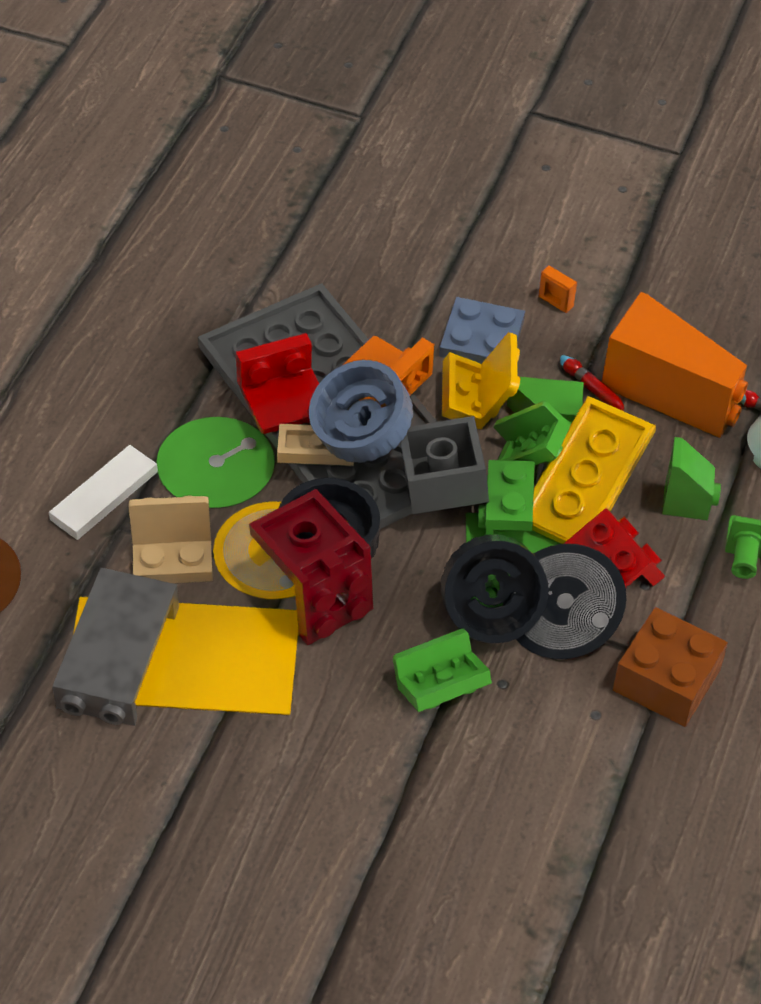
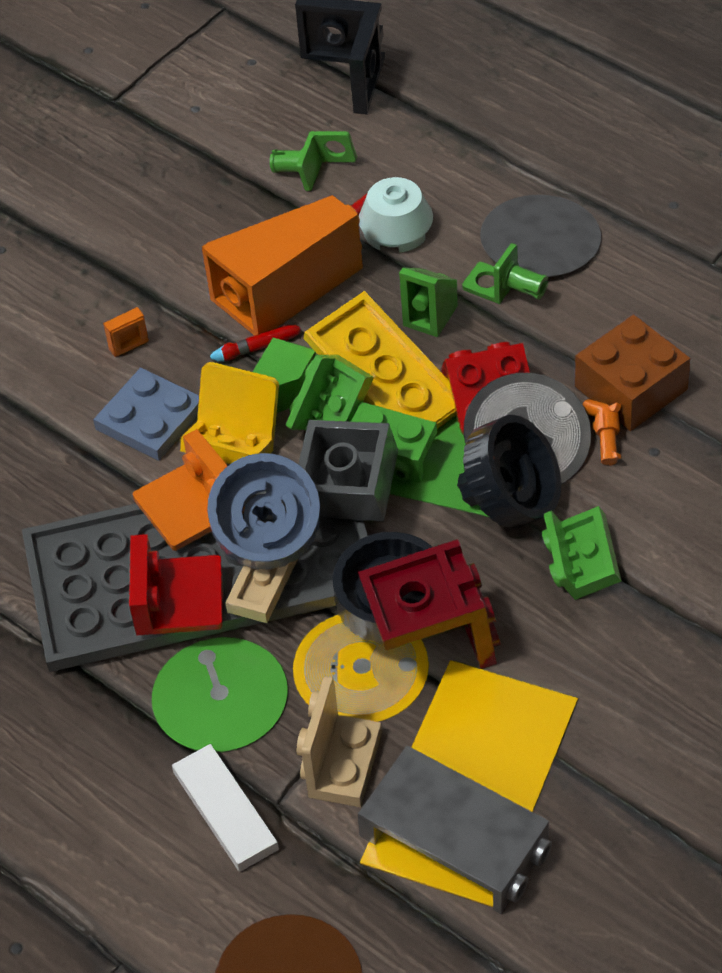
camera: 65 degrees left, 0 degrees up
(600, 663) = (606, 426): none -> orange piece

